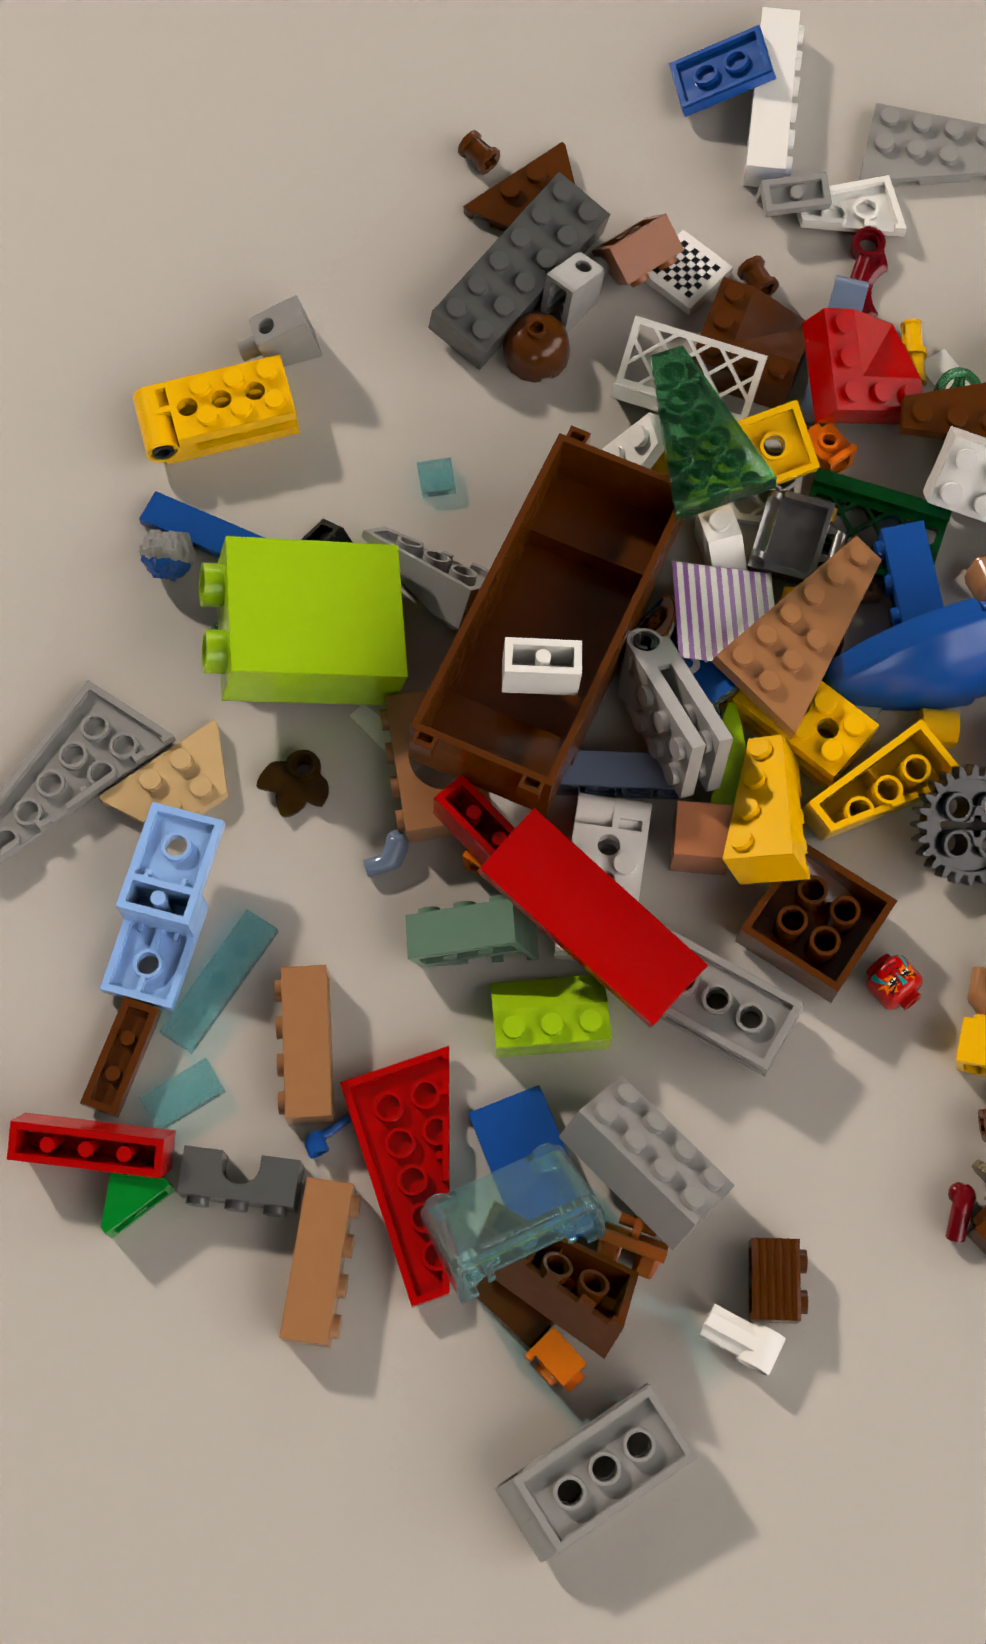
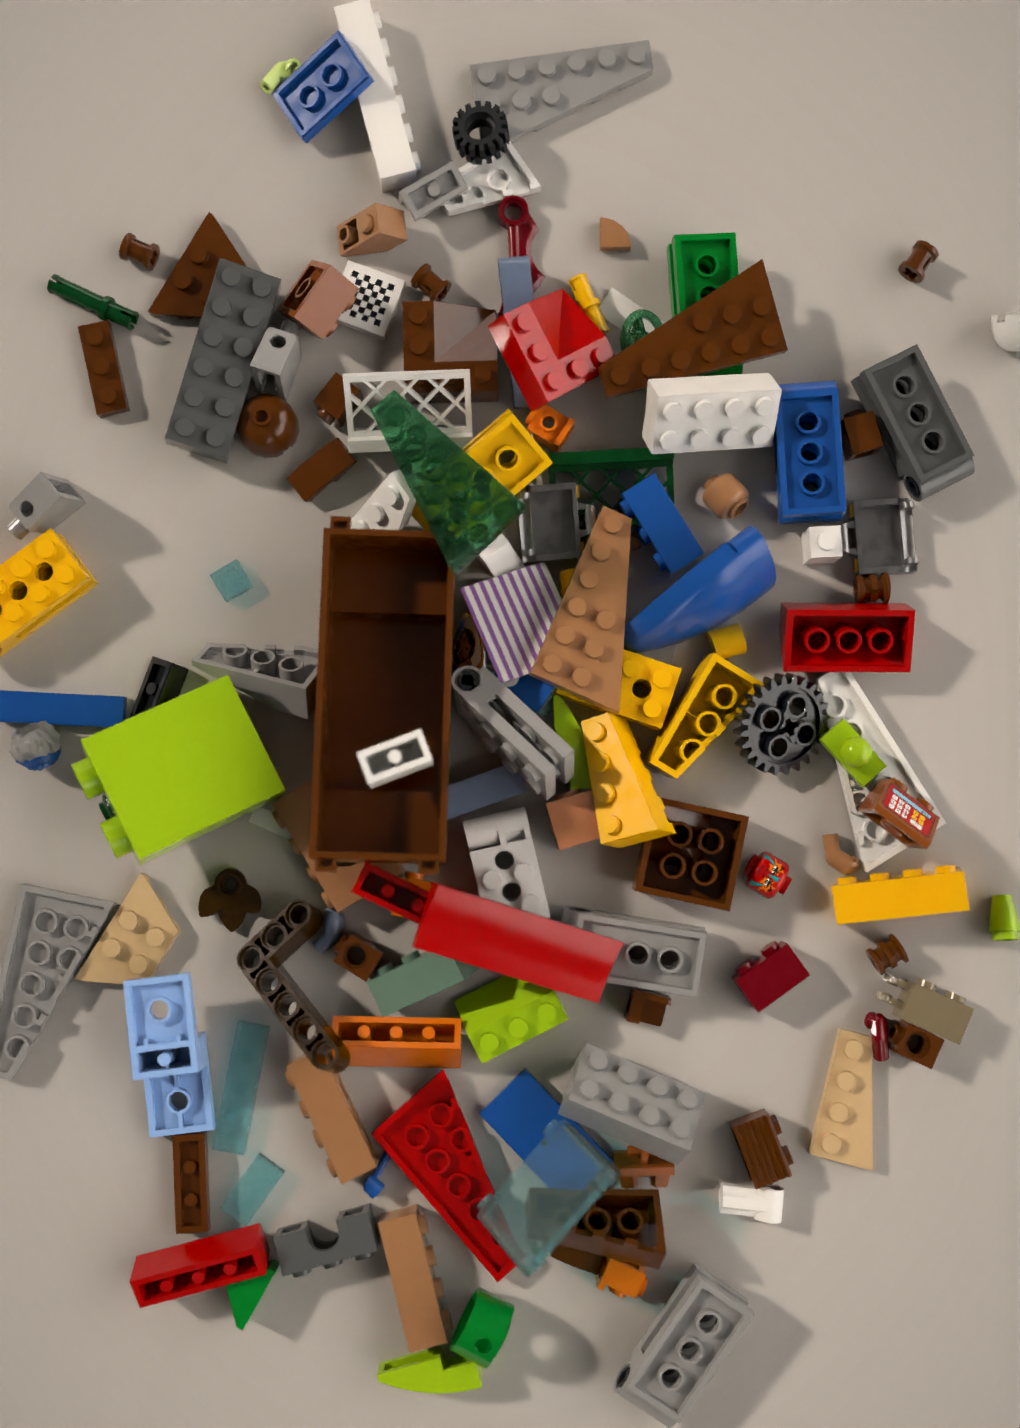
camera: 25 degrees left, 15 degrees up
(295, 1379) = (430, 1372): none -> lime slope
(304, 853) = (287, 990): none -> dark brown beam
(356, 1346) = (482, 1328): none -> green piece
(396, 242) = (103, 368): none -> reddish brown plate
(407, 872) = (372, 955): none -> reddish brown brick
(410, 996) = (401, 1041): none -> orange brick
(422, 187) = (104, 307): none -> dark green pin
(580, 403) = (321, 469): none -> reddish brown slope
(611, 345) = (331, 401): none -> reddish brown brick
(682, 49) = (279, 74): none -> yellowish green arm
(704, 1071) = (646, 1006): none -> reddish brown panel
(718, 211) = (372, 231): none -> medium nougat slope
(857, 1091) = (769, 975): none -> dark red brick
(861, 172) = (480, 117): none -> black tyre
(891, 1282) = (846, 1109): none -> tan wing
(963, 301) = (613, 236): none -> medium nougat tile

